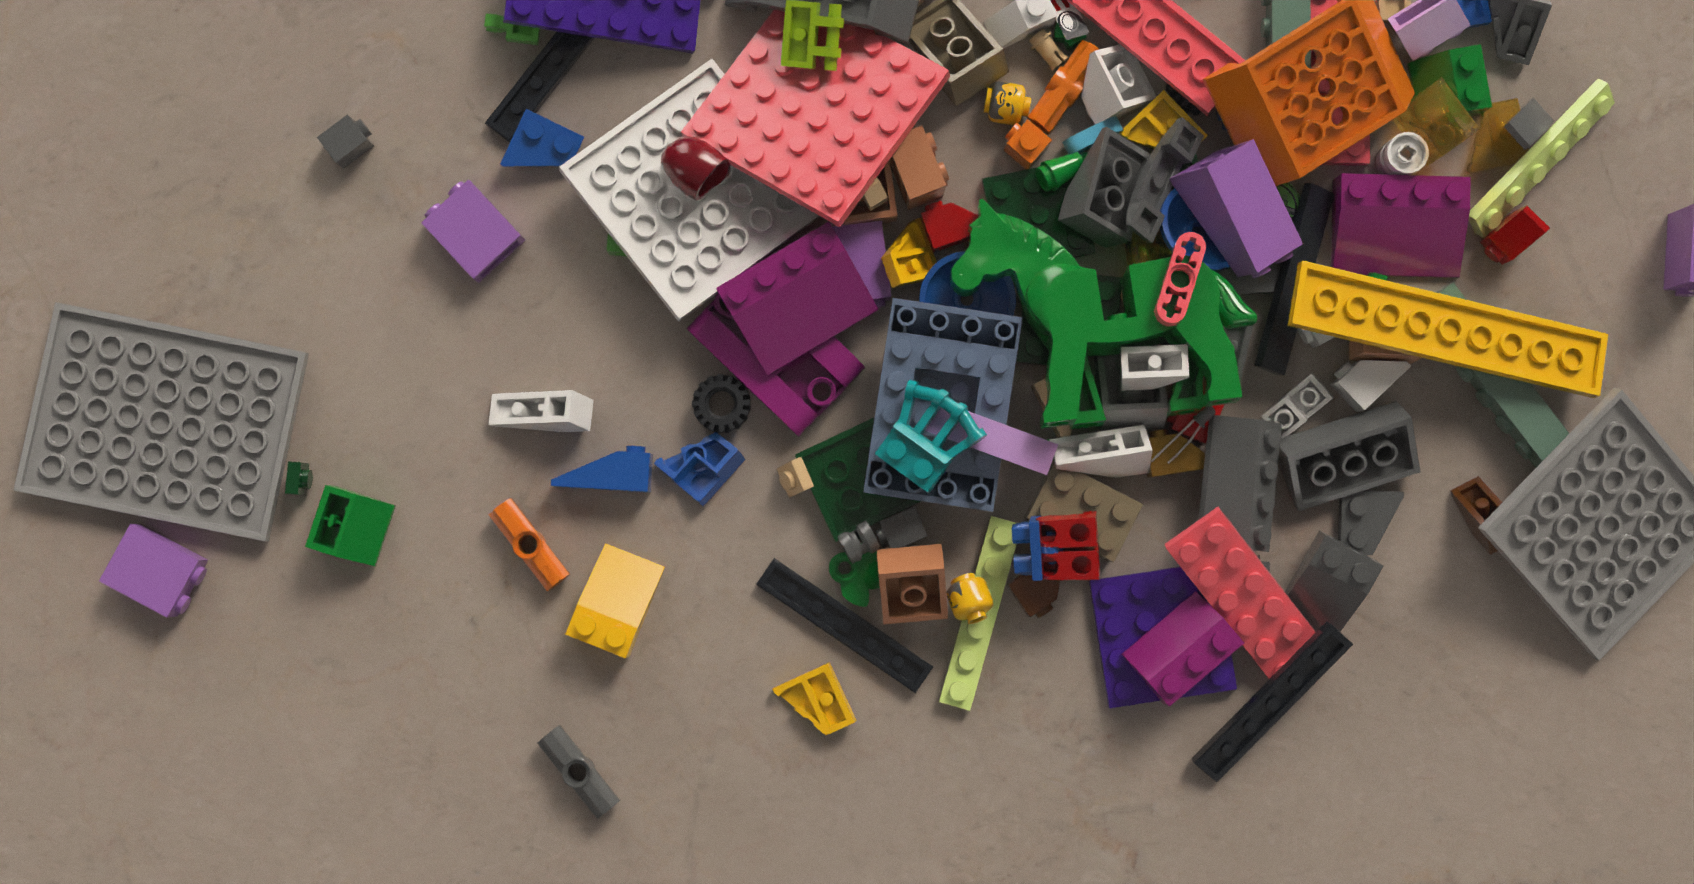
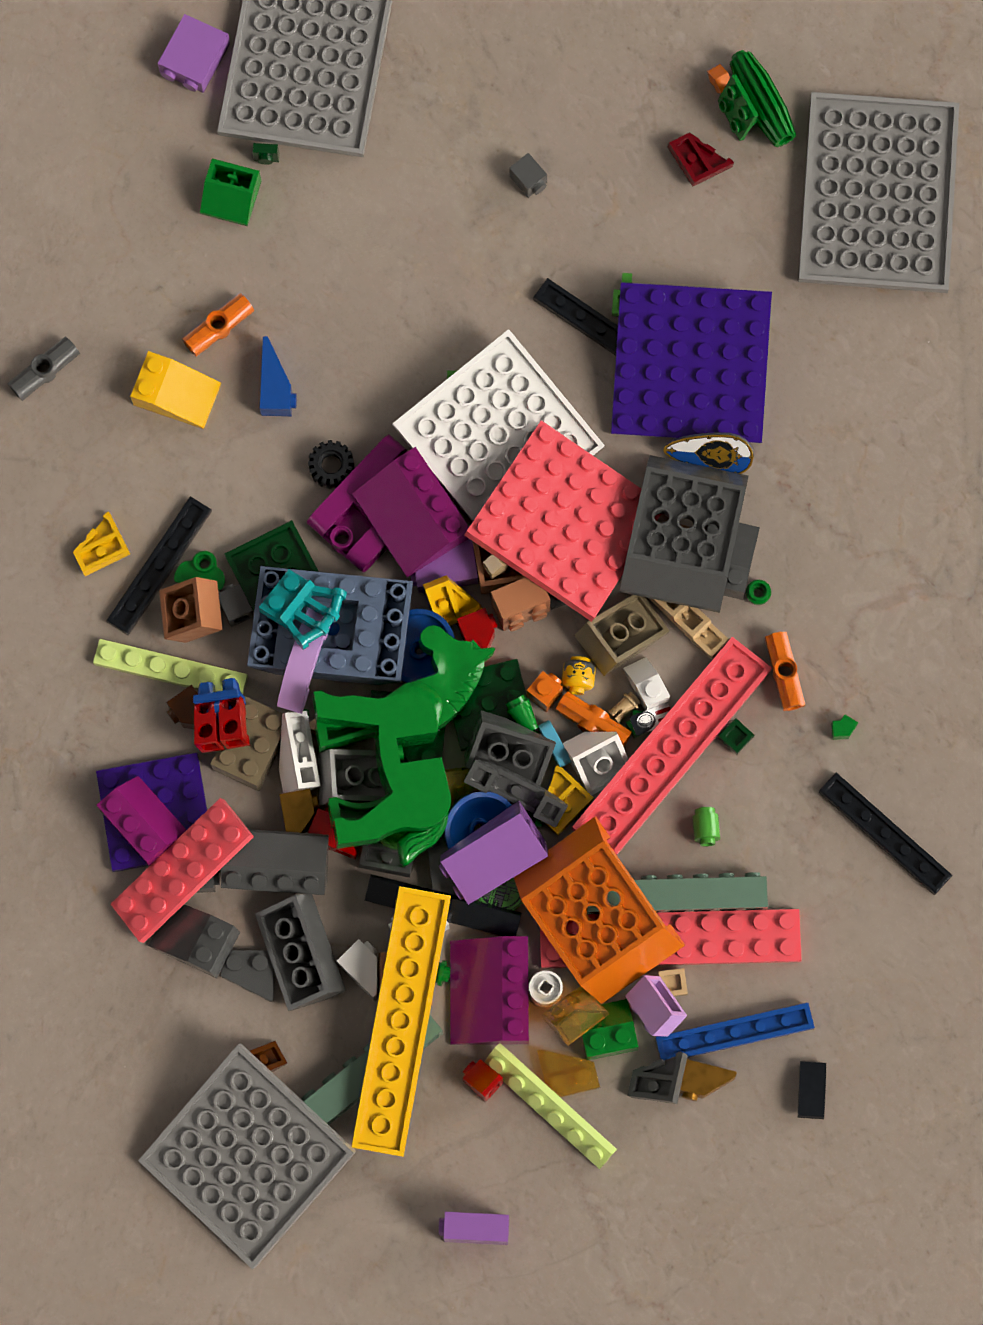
camera: 90 degrees right, 10 degrees down
(472, 230) = (461, 272): medium lavender brick -> none
(540, 143) = (532, 320): blue wing -> none
(542, 411) = (321, 329): white slope -> none
(690, 163) = (511, 424): dark red piece -> none
(702, 466) = (281, 452): blue slope -> none
(794, 477) = (274, 520): tan plate -> none
(801, 35) = (617, 504): lime plate -> none
(852, 546) = (223, 568): dark grey wheel -> none
(969, 598) = (180, 653): yellow head -> none
(1153, 366) = (363, 780): white slope -> none
(1178, 254) = (414, 781): coral beam -> none
(1201, 418) = (323, 826): piece -> none
(1272, 701) = (102, 894): black tile -> none
(1298, 404) = (341, 914): white slope -> none
(1529, 123) = (576, 1091): dark grey slope -> none

